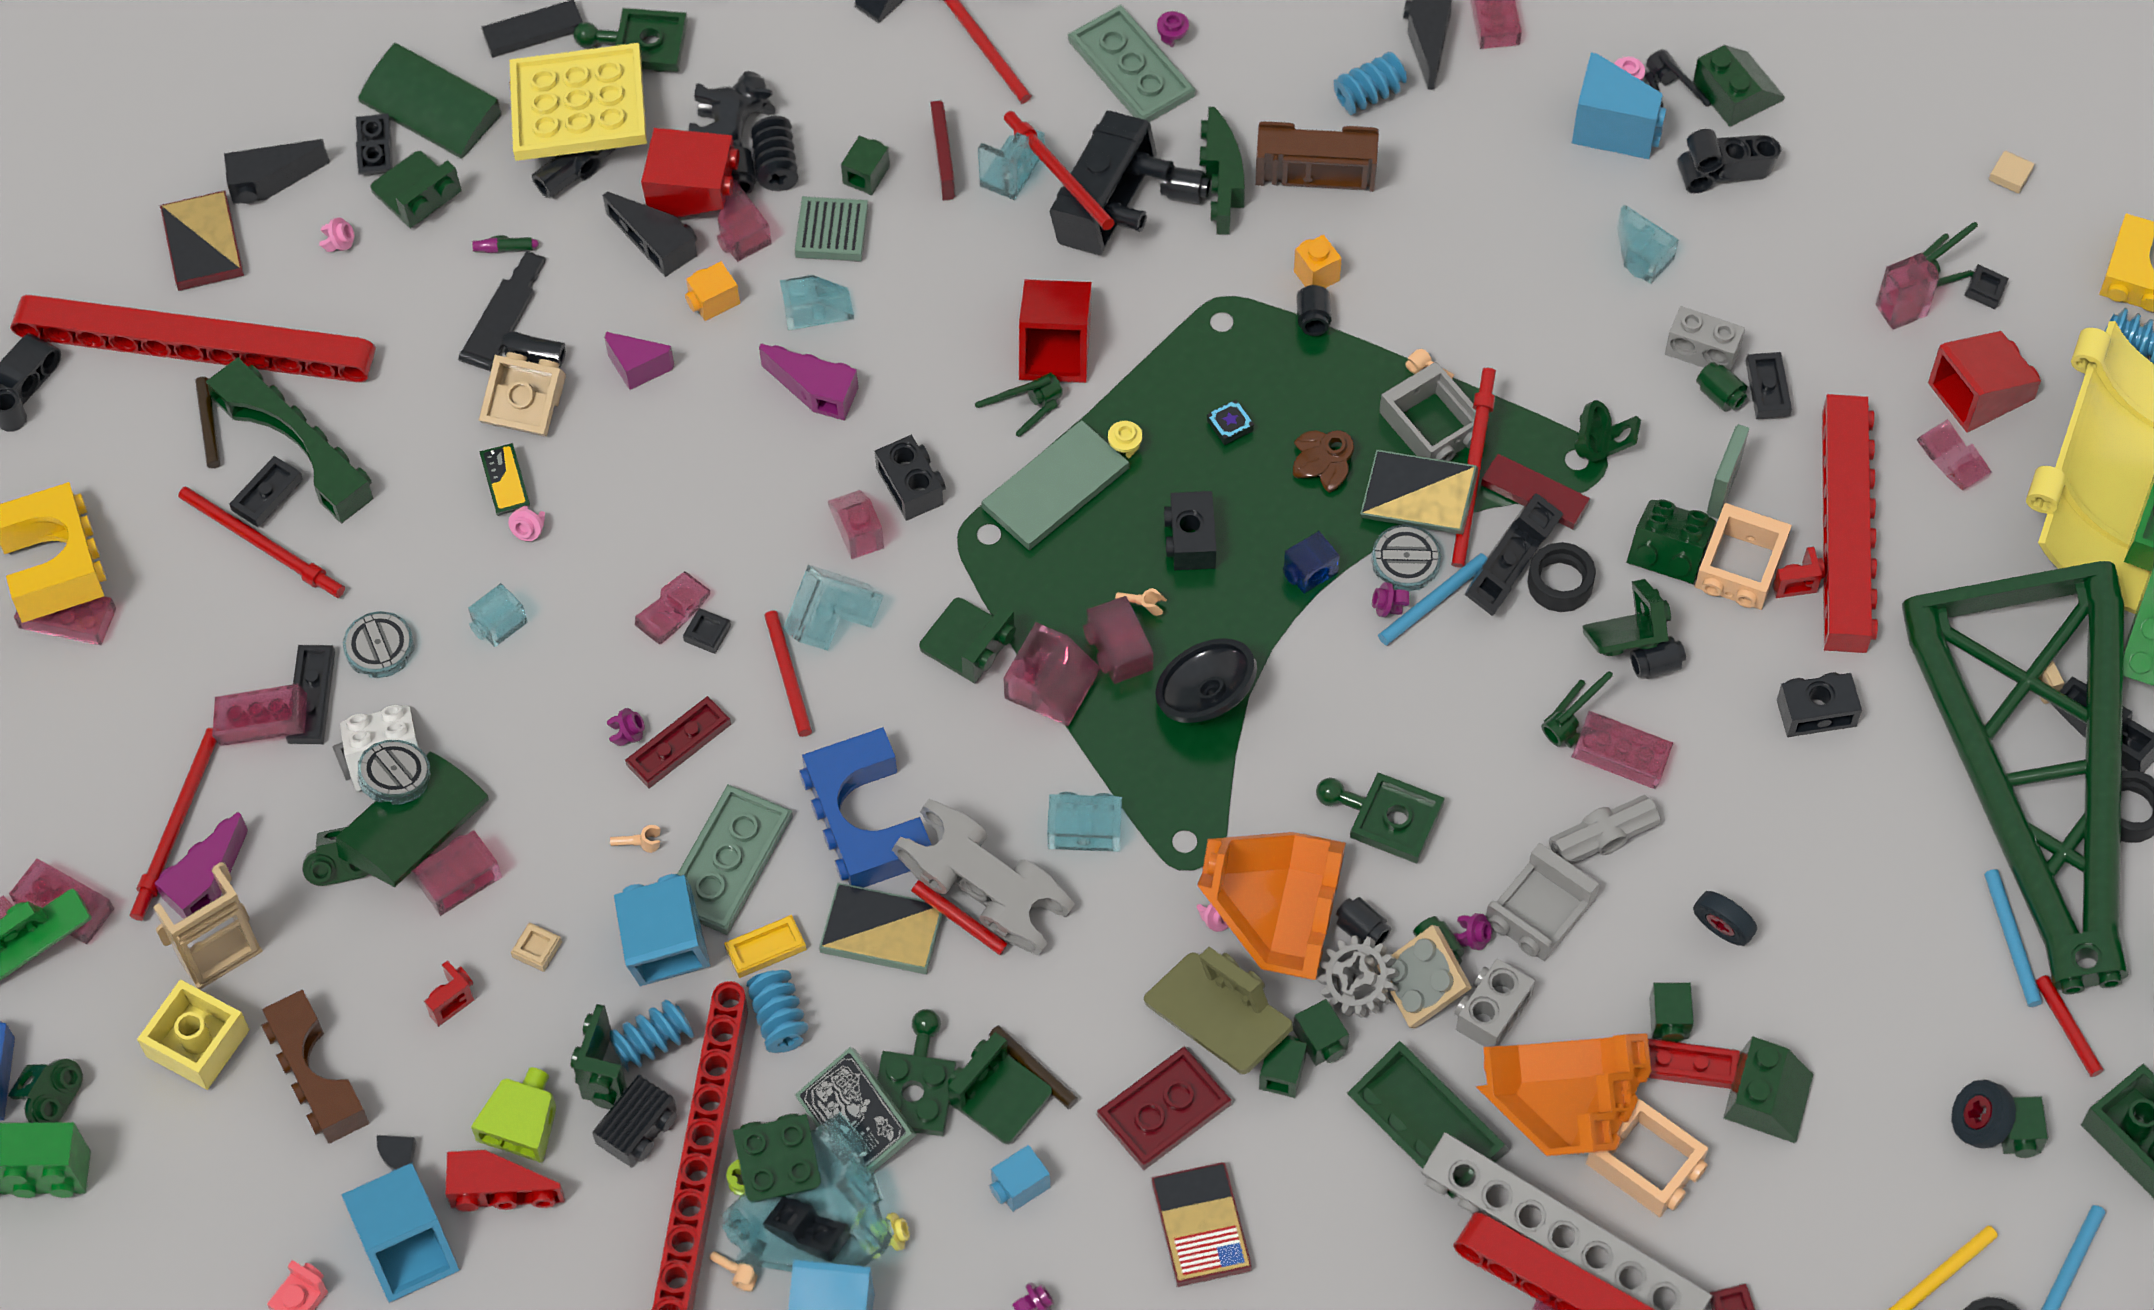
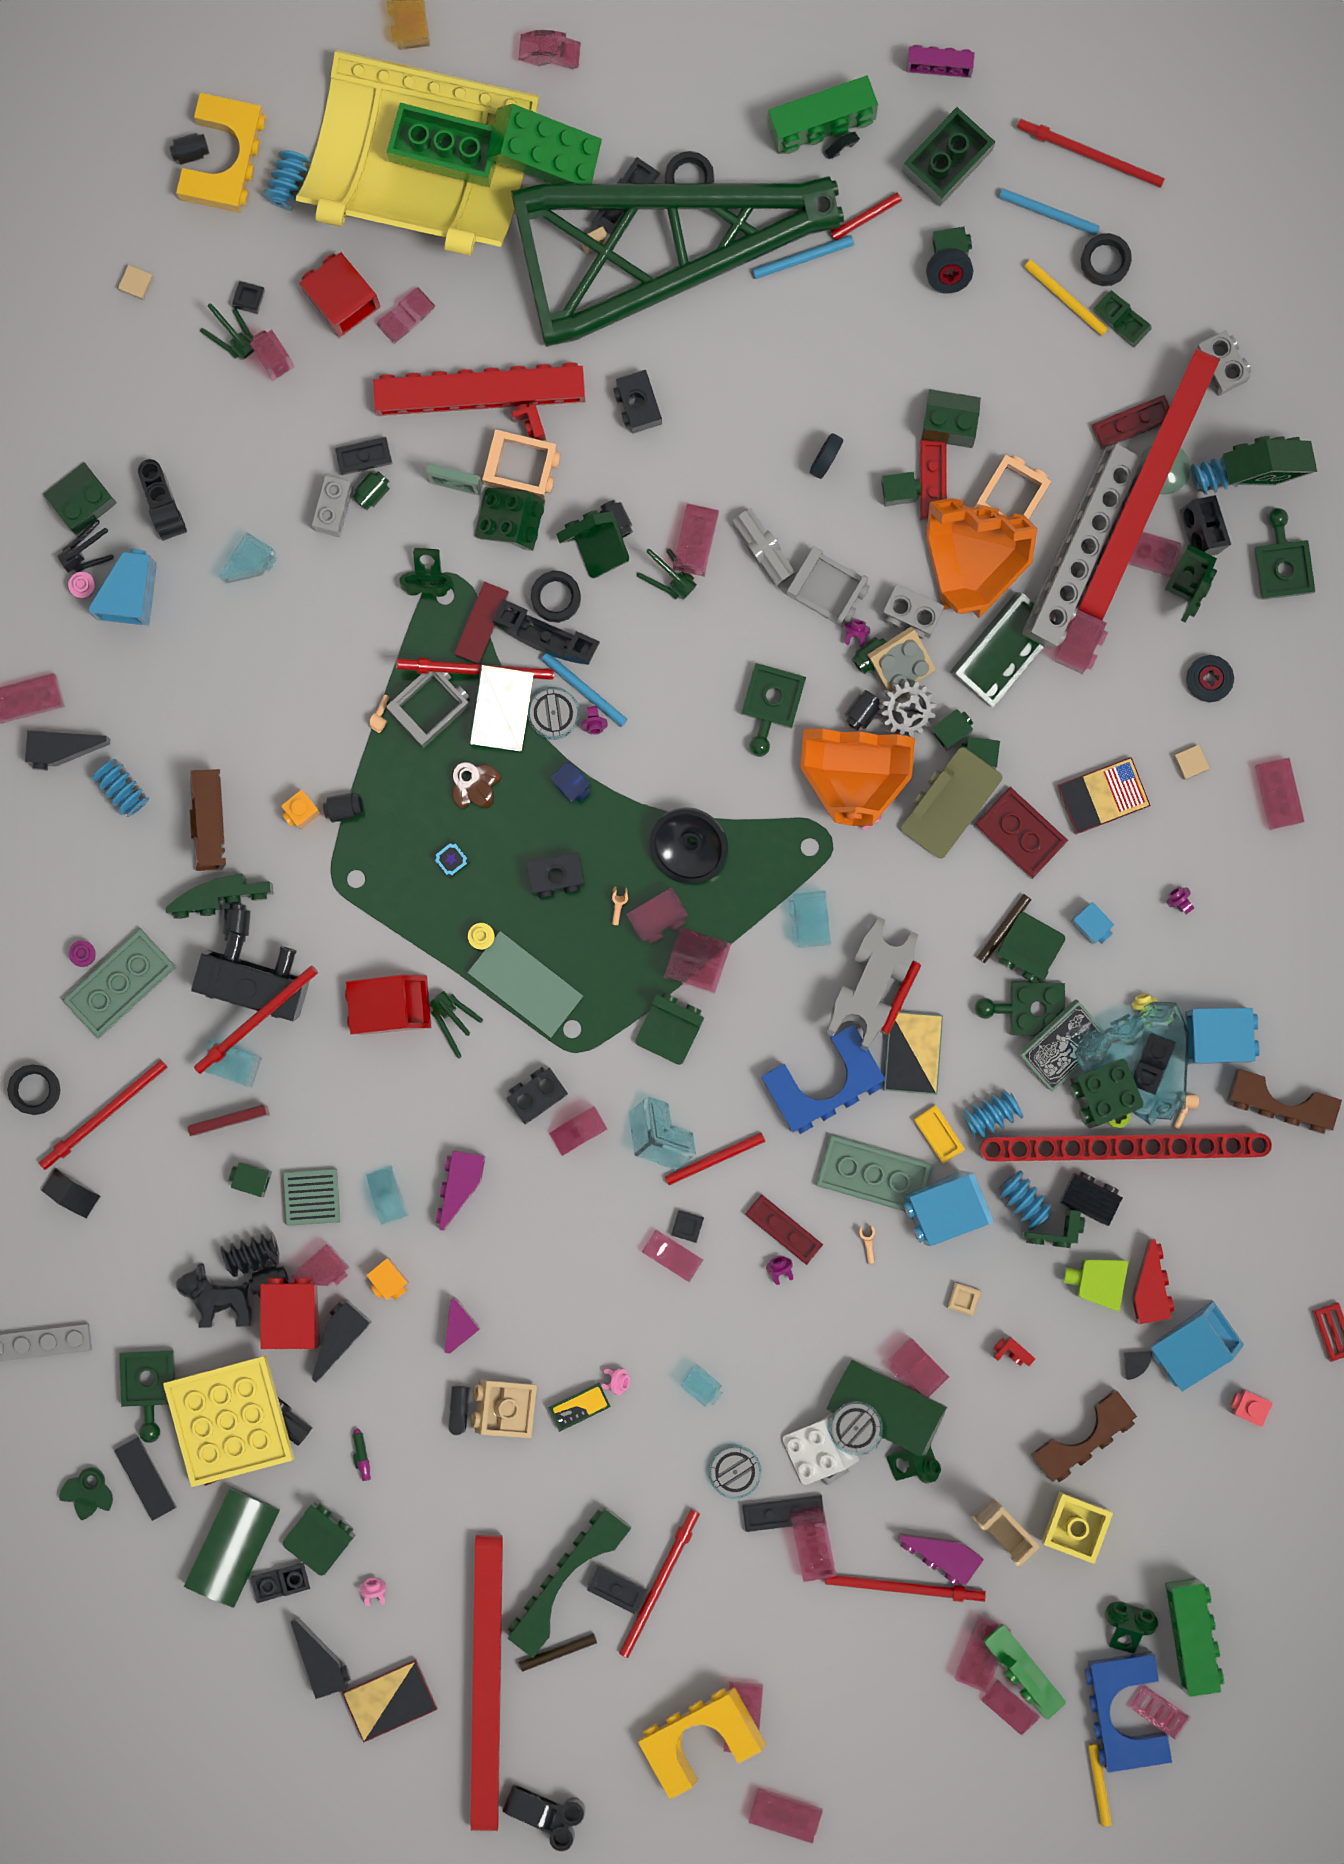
camera: 95 degrees left, 25 degrees up
(502, 313) = (426, 1442): black piece -> none
(1424, 1219) = (1080, 642): none -> clear pink brick

